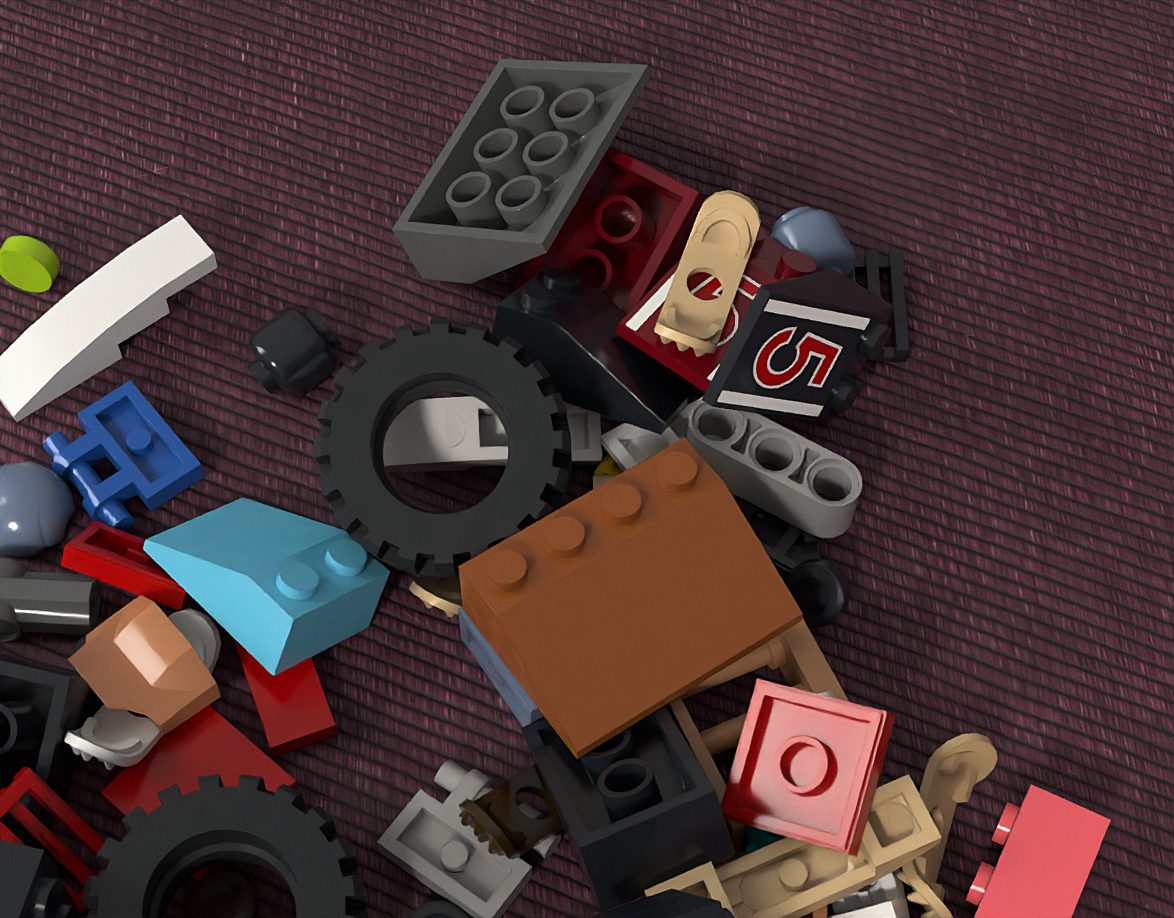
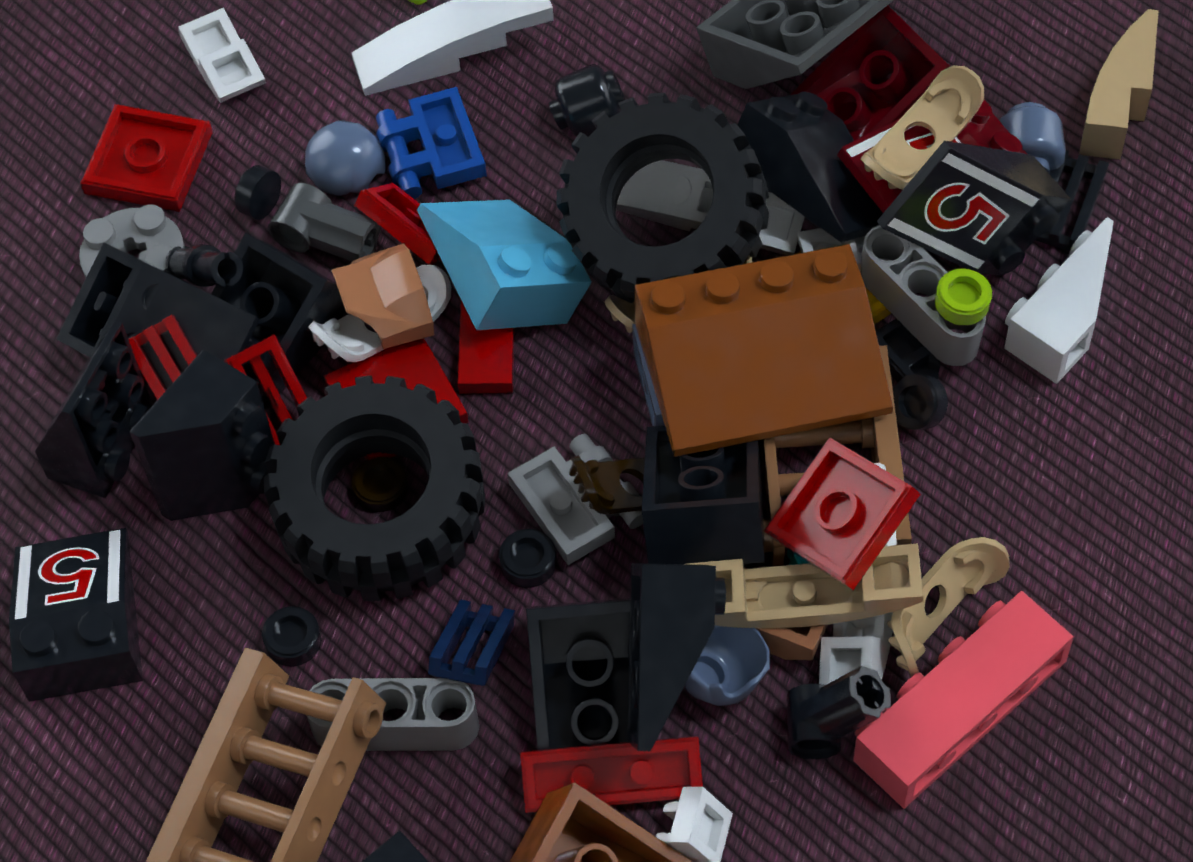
camera: 25 degrees right, 0 degrees up
(828, 457) = (963, 296): none -> lime tile
(882, 167) = (1121, 89): none -> tan slope
(932, 430) = (1060, 317): none -> white slope

